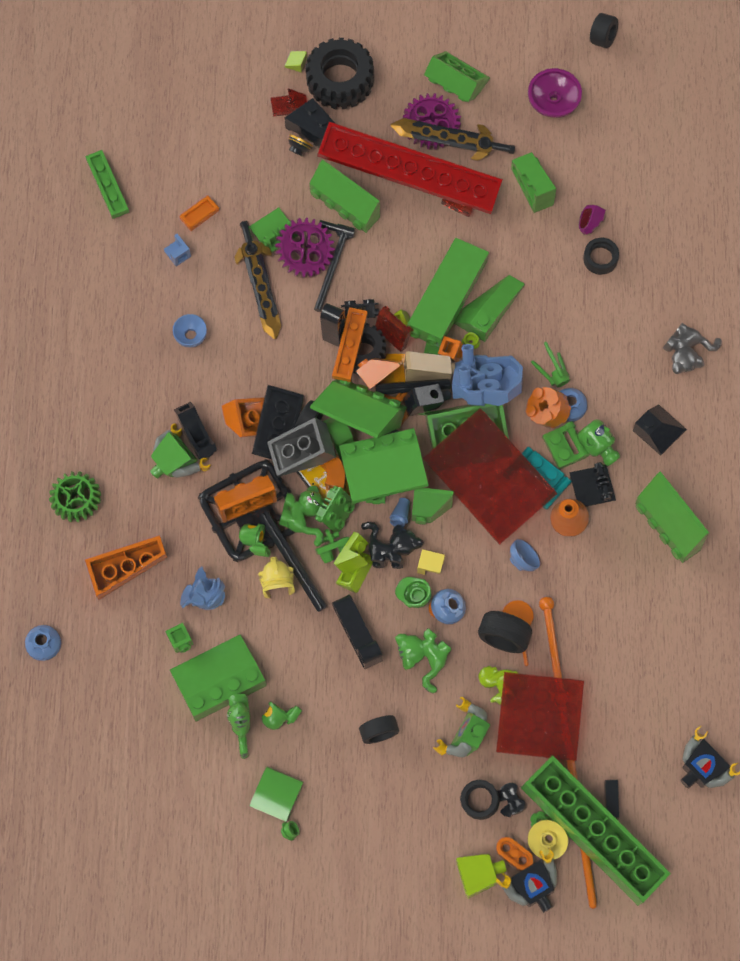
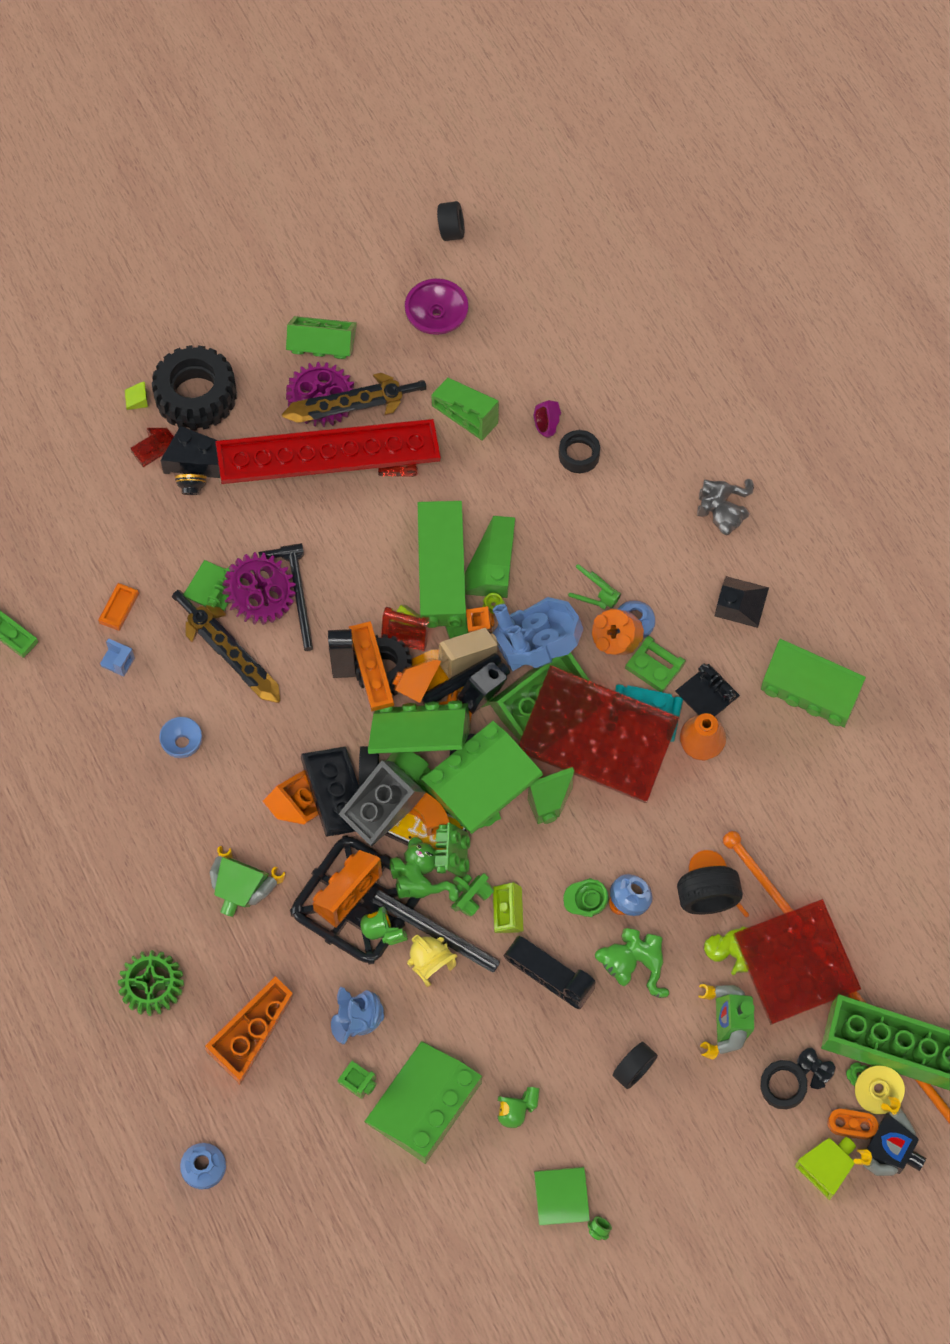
camera: 30 degrees left, 5 degrees down
(195, 431) = (249, 845): black arch -> none
(239, 719) = (478, 1134): bright green animal -> none
(344, 197) = (273, 514): bright green slope -> none
(350, 556) = (497, 892): lime slope -> none
(368, 304) = (365, 614): black hinge -> none
(400, 513) = (522, 821): medium blue cone -> none
(401, 543) = (542, 851): black animal -> none
(430, 562) = (585, 857): light yellow panel -> none
(524, 556) = (680, 801): medium blue piece -> none
(598, 440) = (688, 642): bright green piece -> none
(612, 797) = (915, 1007): black piece -> none

